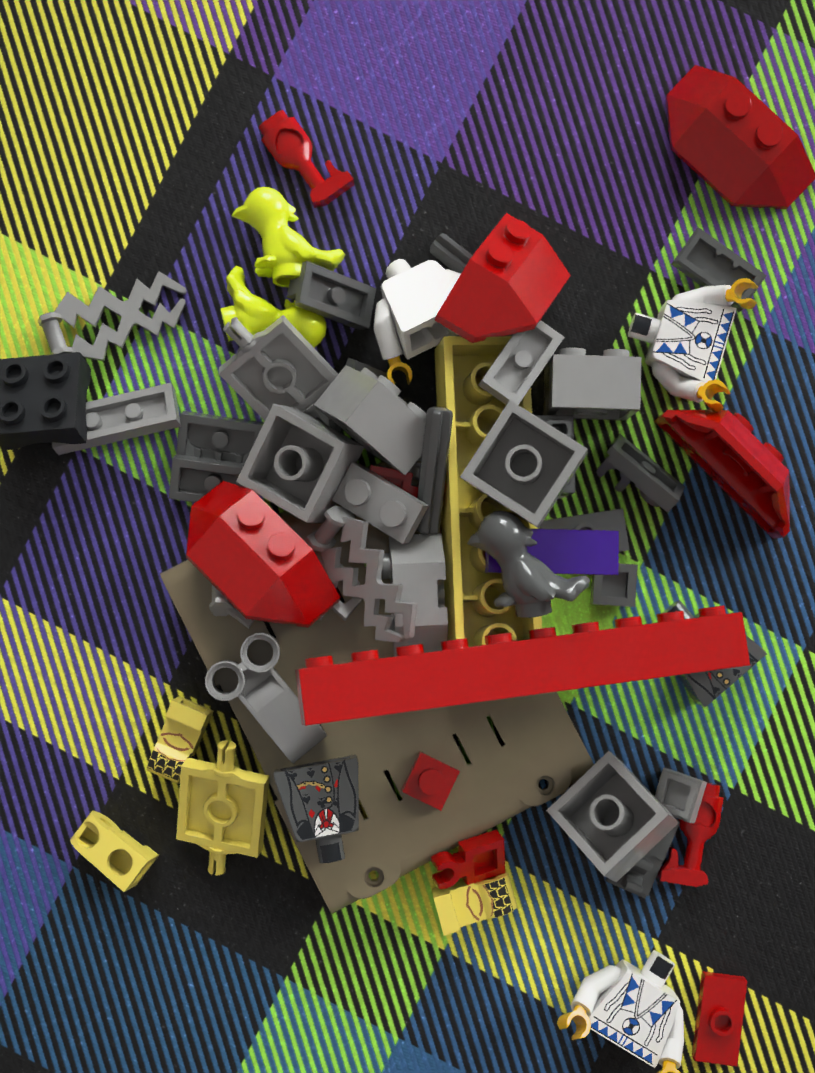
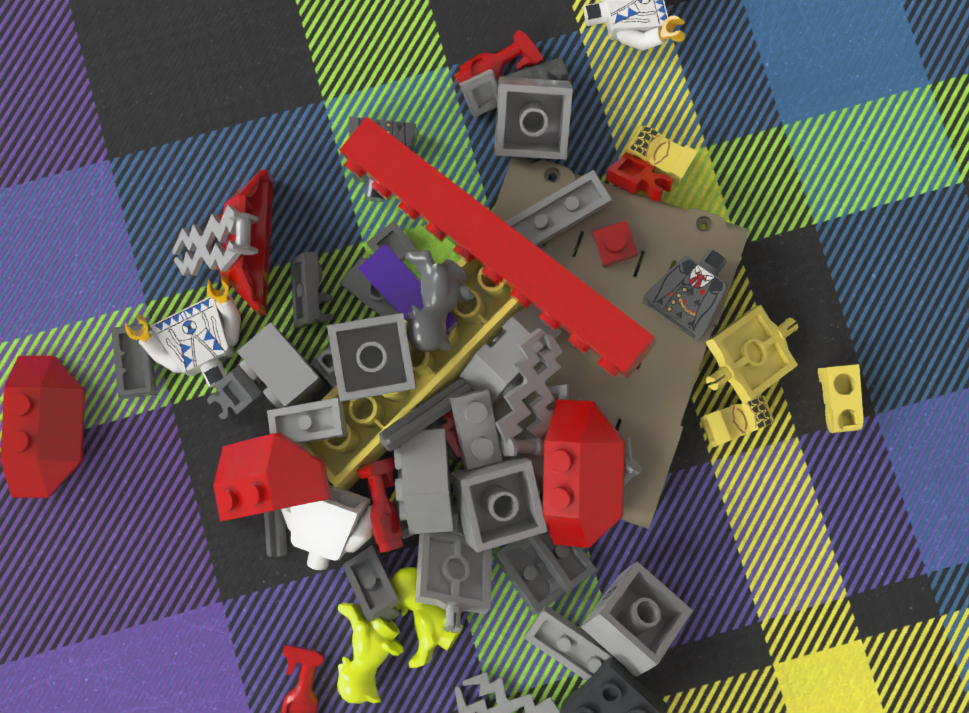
camera: 135 degrees left, 5 degrees down
(93, 490) = (637, 619): none -> light grey brick
(268, 700) = (660, 387): light grey piece -> none
(383, 358) = (383, 513): none -> red piece
(505, 758) = (561, 209): none -> light grey plate
(608, 328) = (235, 392): none -> dark grey plate
(762, 456) = (231, 222): none -> light grey piece

